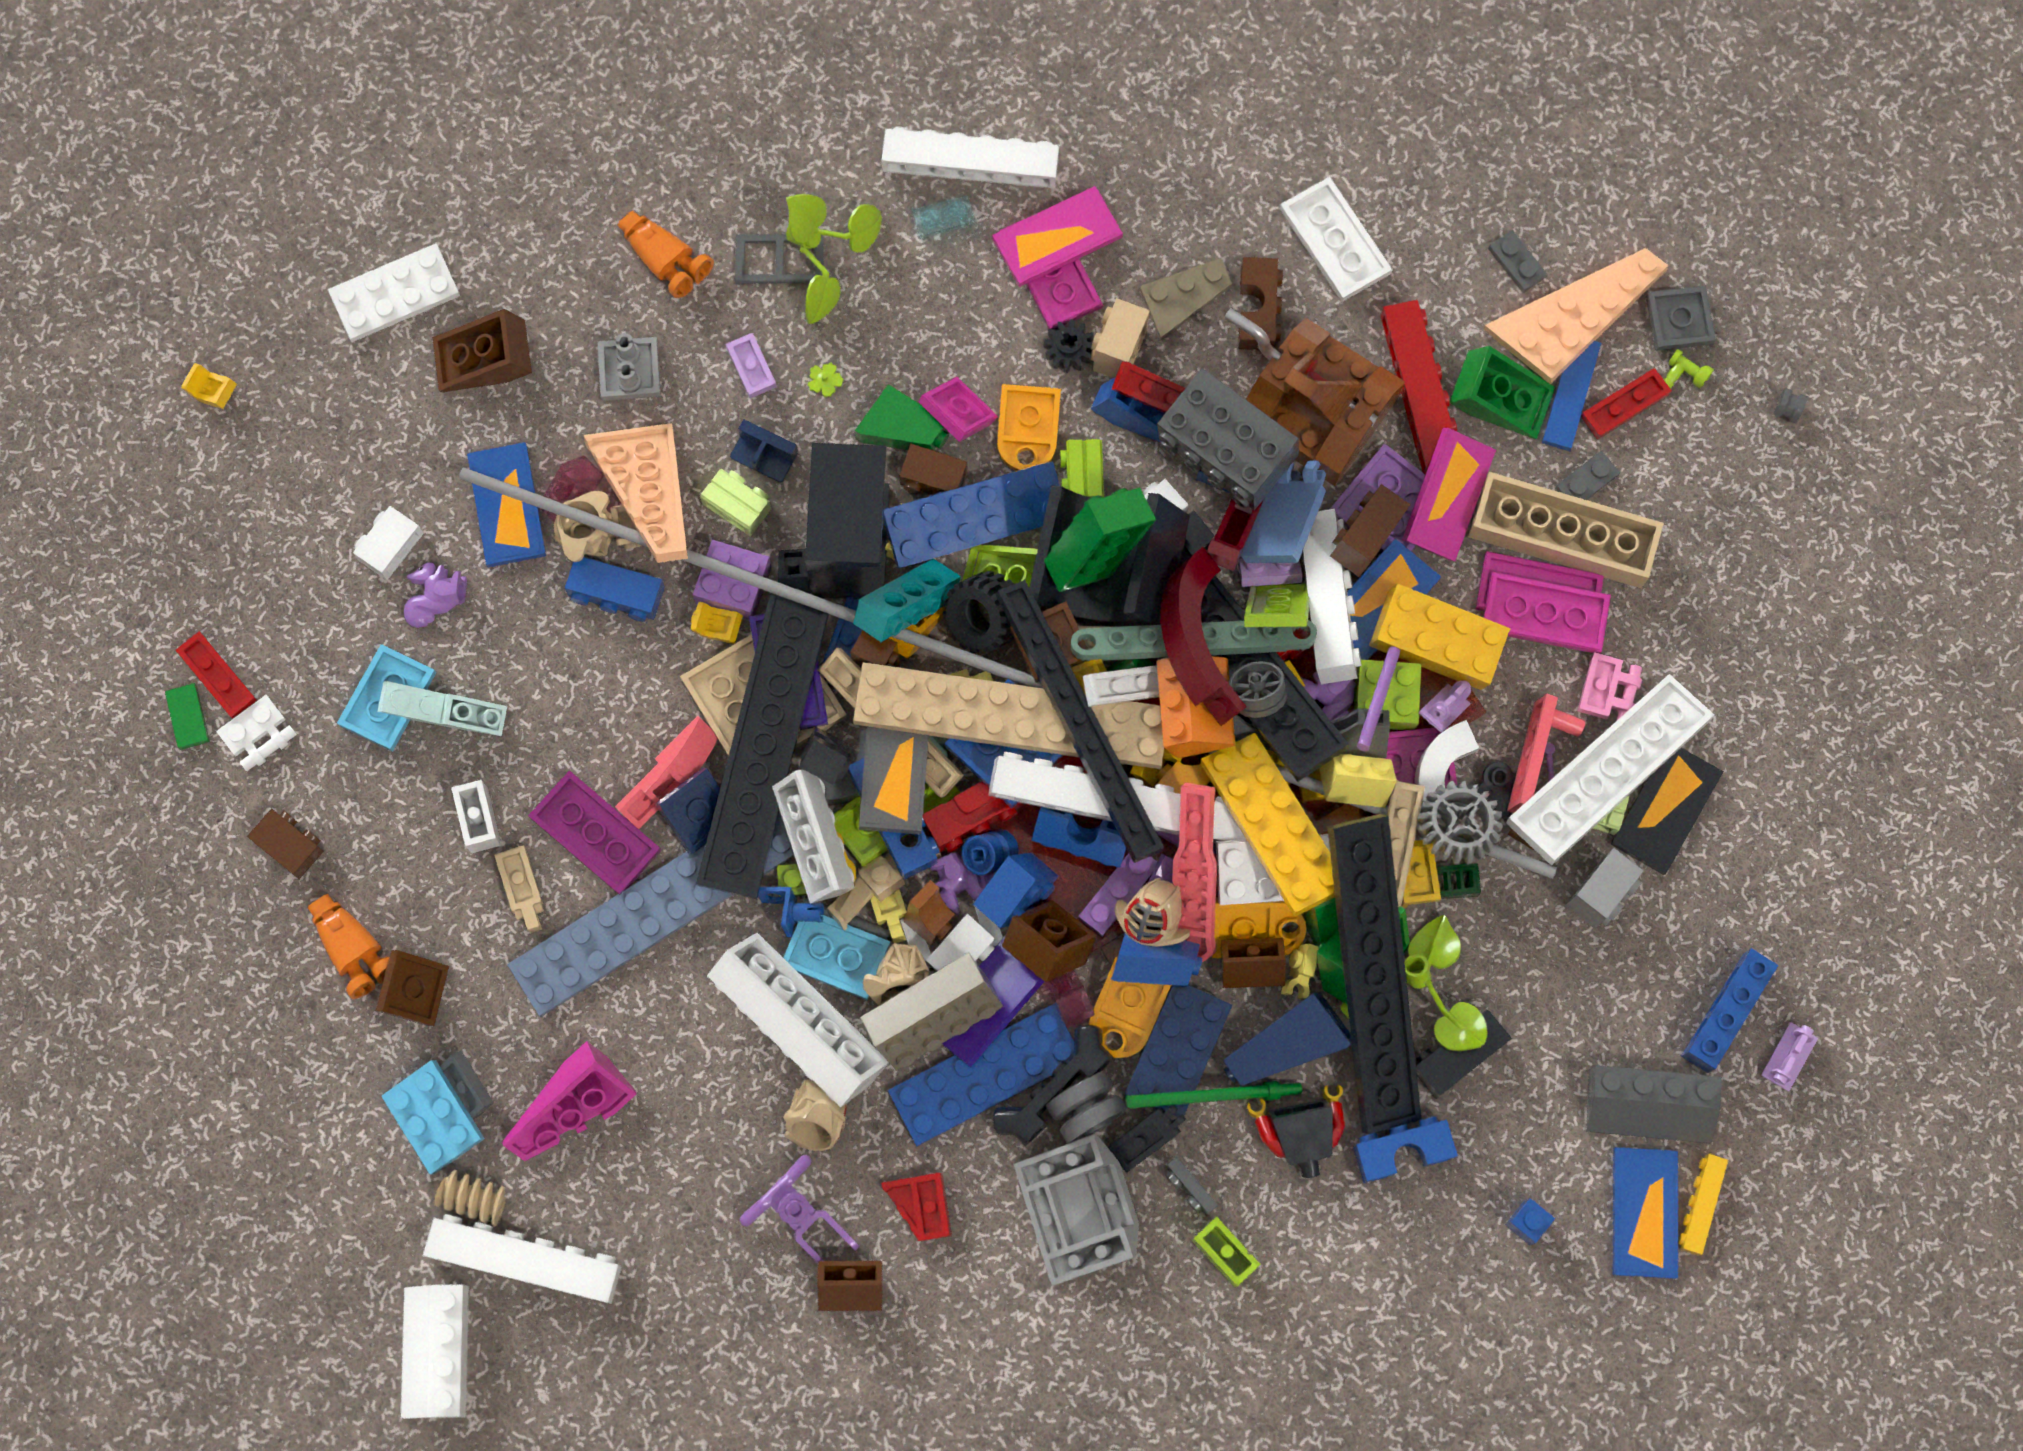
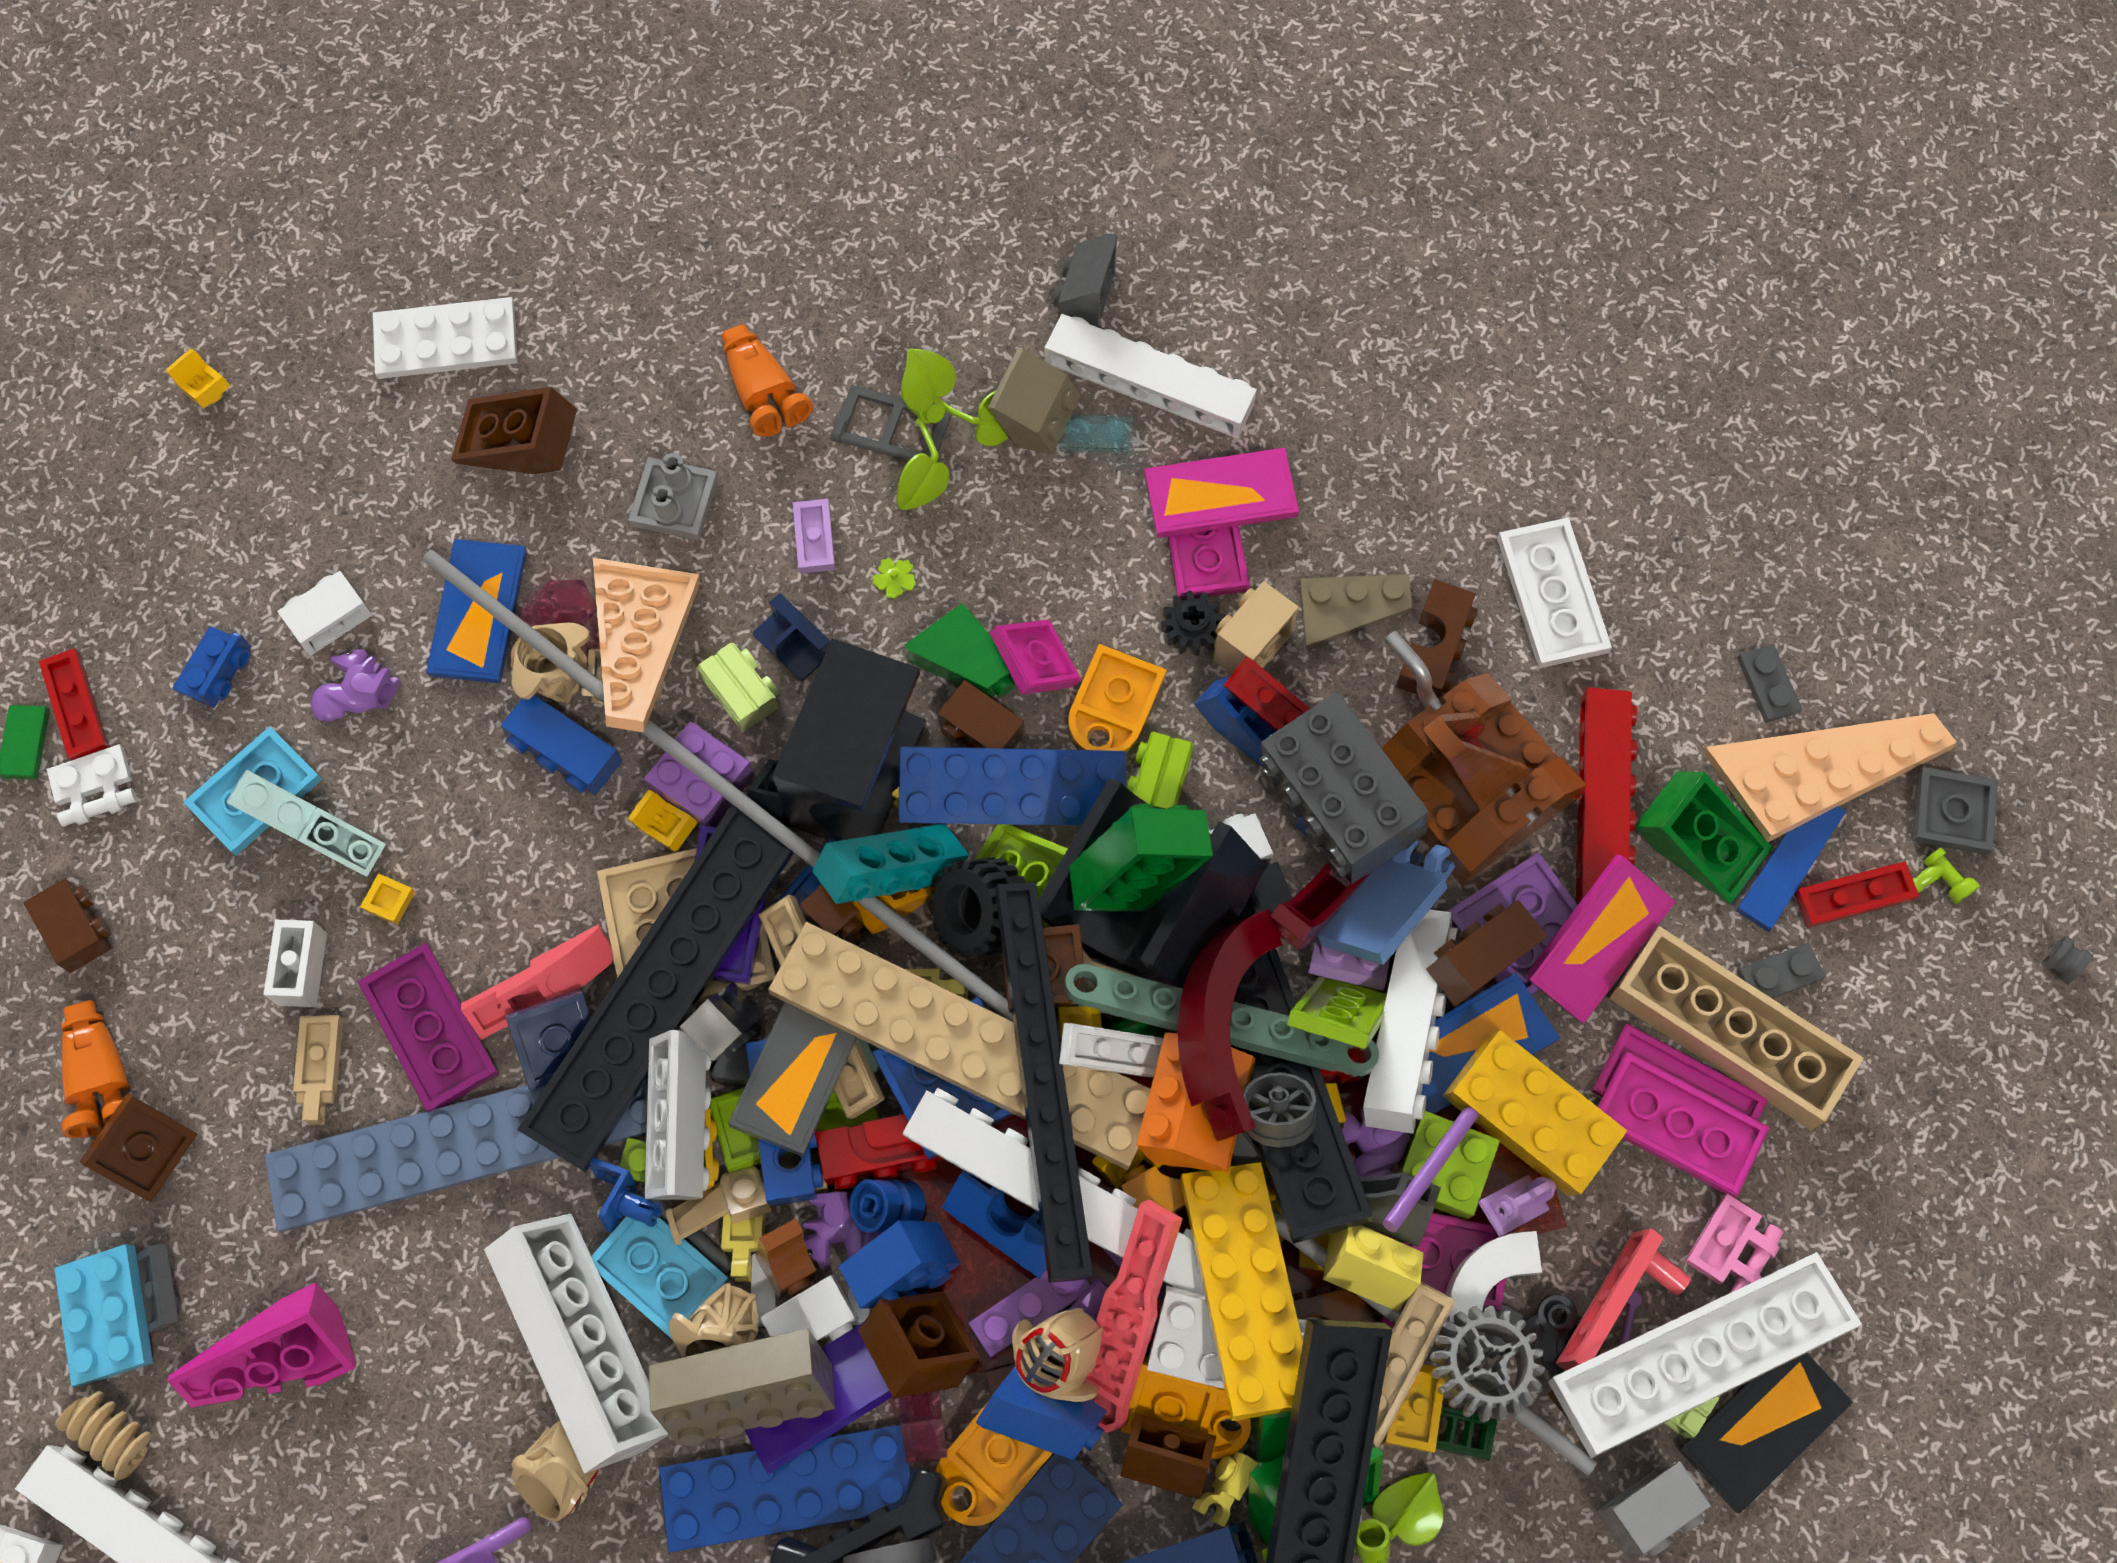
camera: 20 degrees right, 5 degrees down
(314, 612) = (212, 667): none -> blue bracket
(525, 747) = (387, 899): none -> yellow plate
(889, 208) = (1034, 402): none -> dark tan slope
(895, 94) = (1087, 279): none -> dark grey slope

